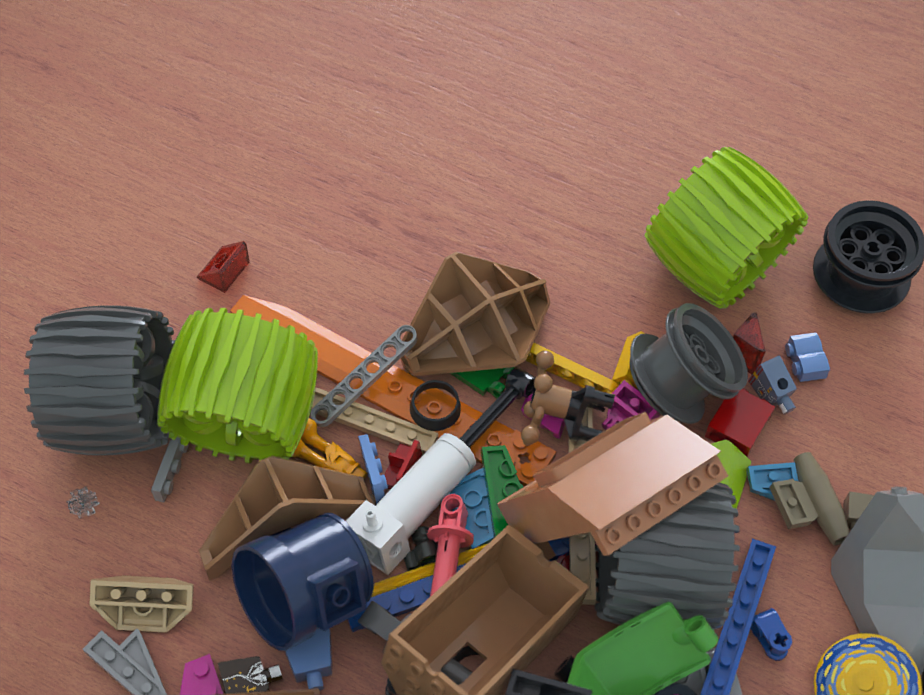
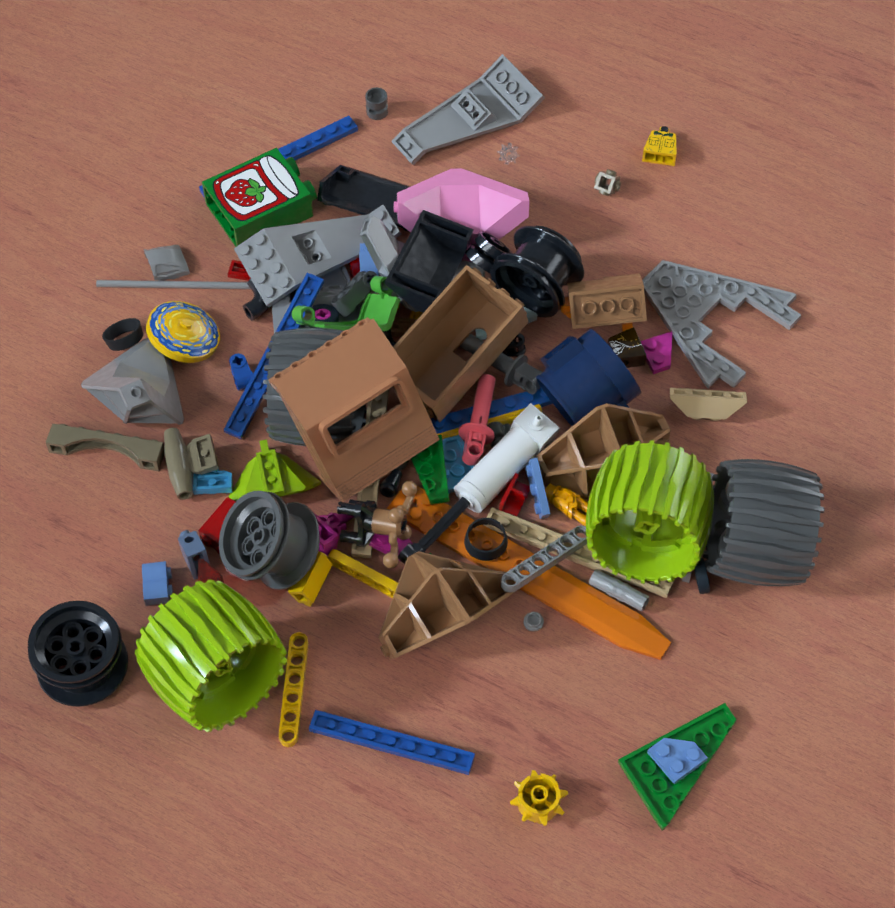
camera: 175 degrees left, 0 degrees up
(225, 266) = (682, 683): clear red slope -> none
(238, 190) = (677, 757): none -> medium blue plate
(247, 191) = (654, 786): none -> green wing
(377, 156) = (537, 809): none -> yellow brick
(380, 328) = (533, 621): none -> light grey plate
(527, 208) = (392, 742): none -> blue plate
(634, 258) = (290, 688): none -> yellow beam

